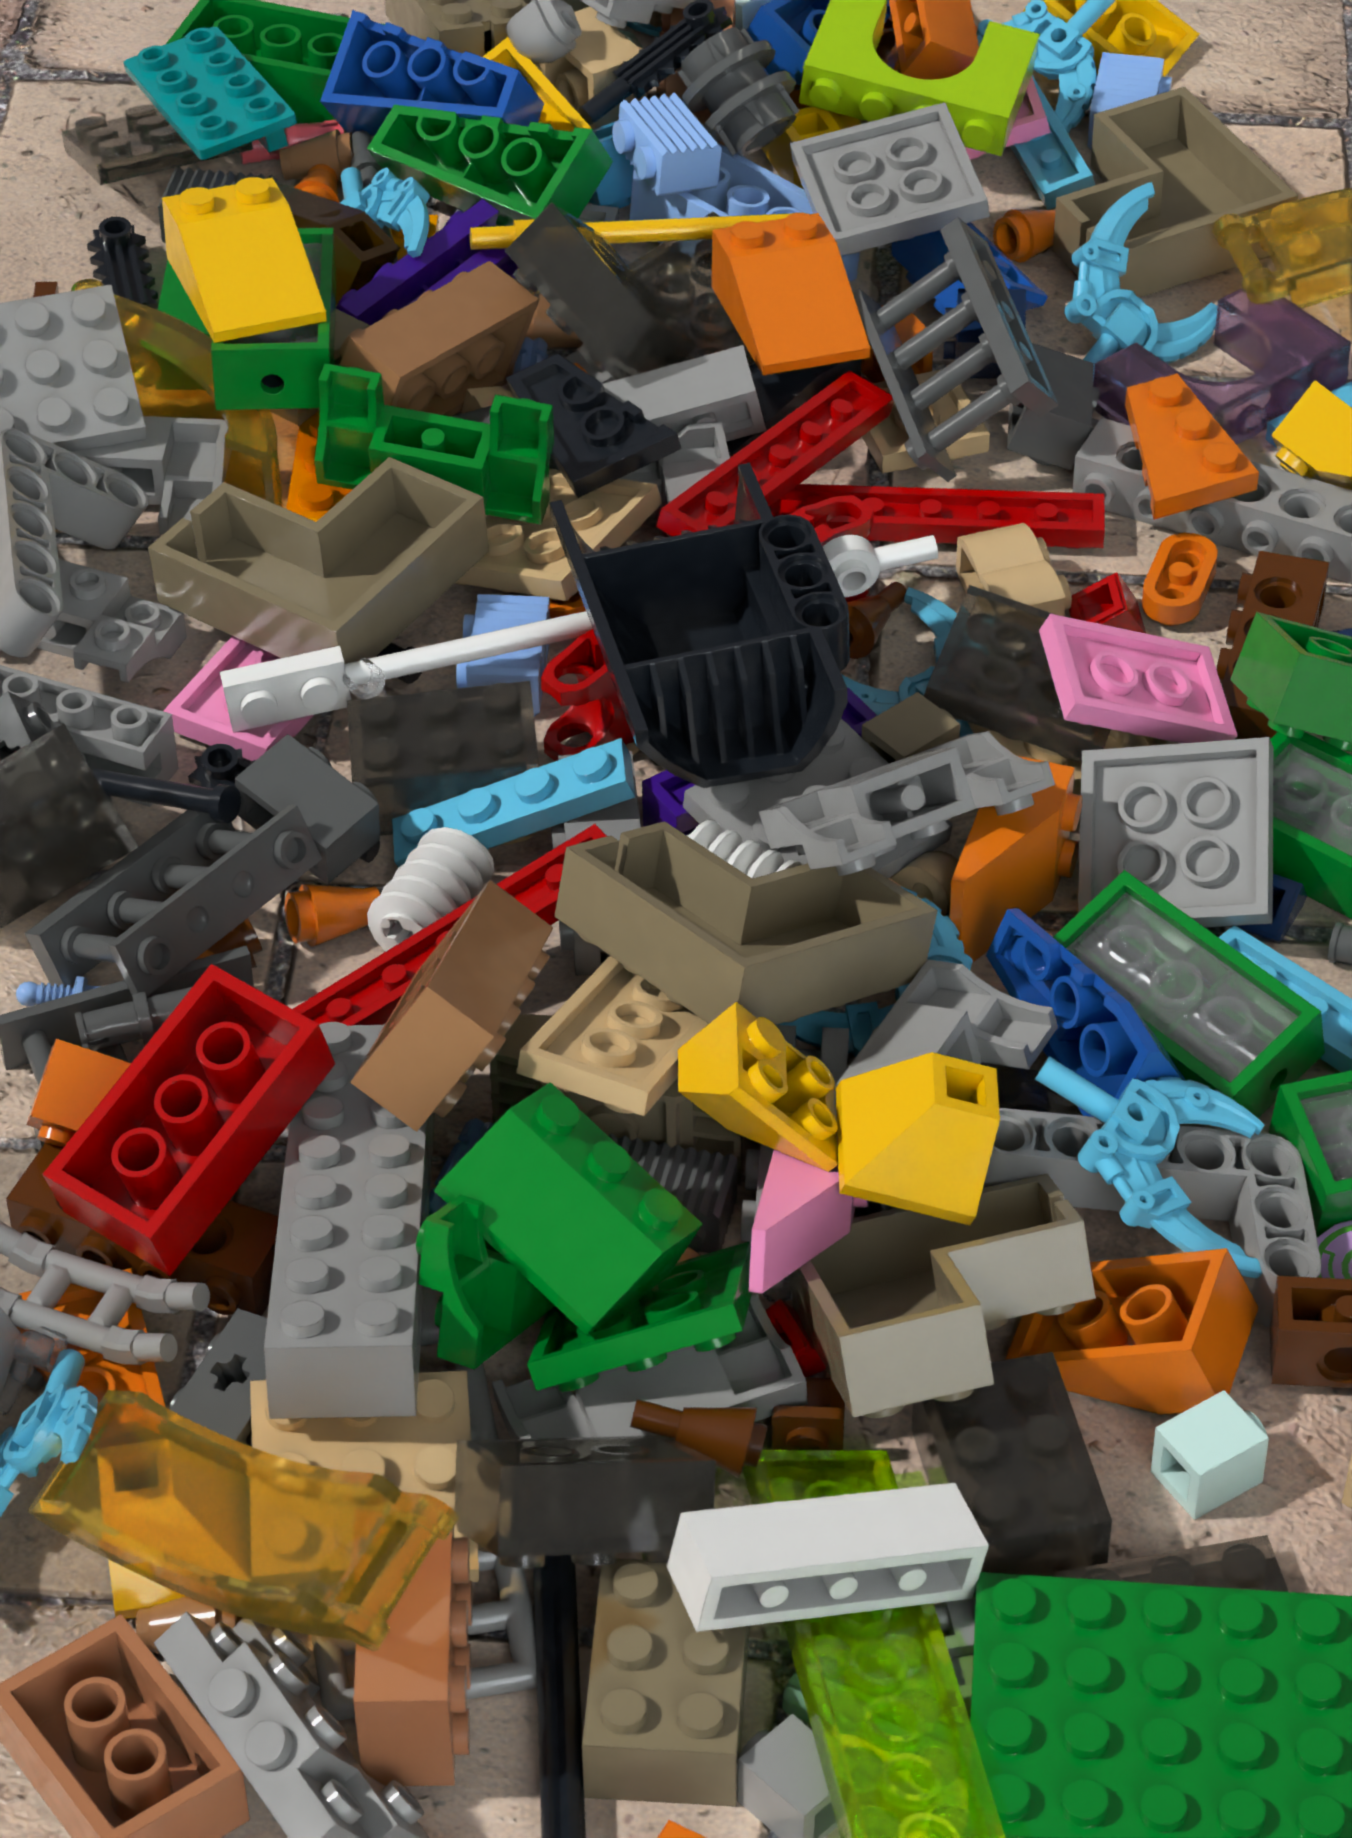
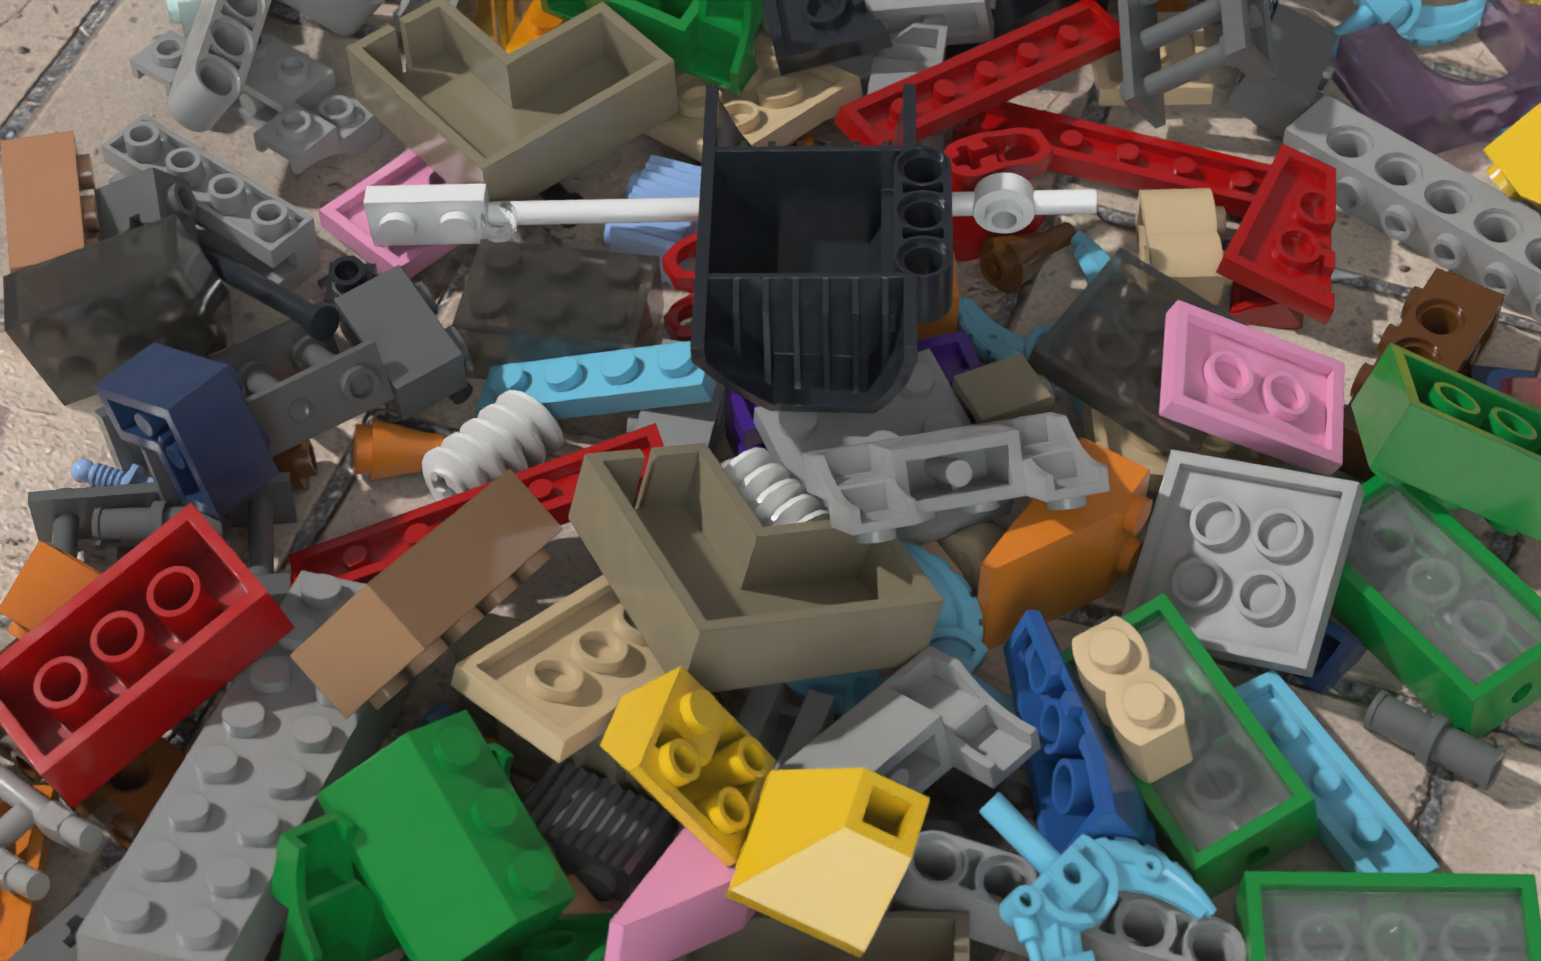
camera: 15 degrees right, 5 degrees up
(161, 901) = (194, 421): none -> dark blue brick
(1111, 550) = (1287, 236): none -> red wing
(1135, 959) = (1133, 699): none -> tan brick
(1179, 578) = (1362, 271): orange plate -> none
(1184, 448) = (1395, 145): orange wing -> none

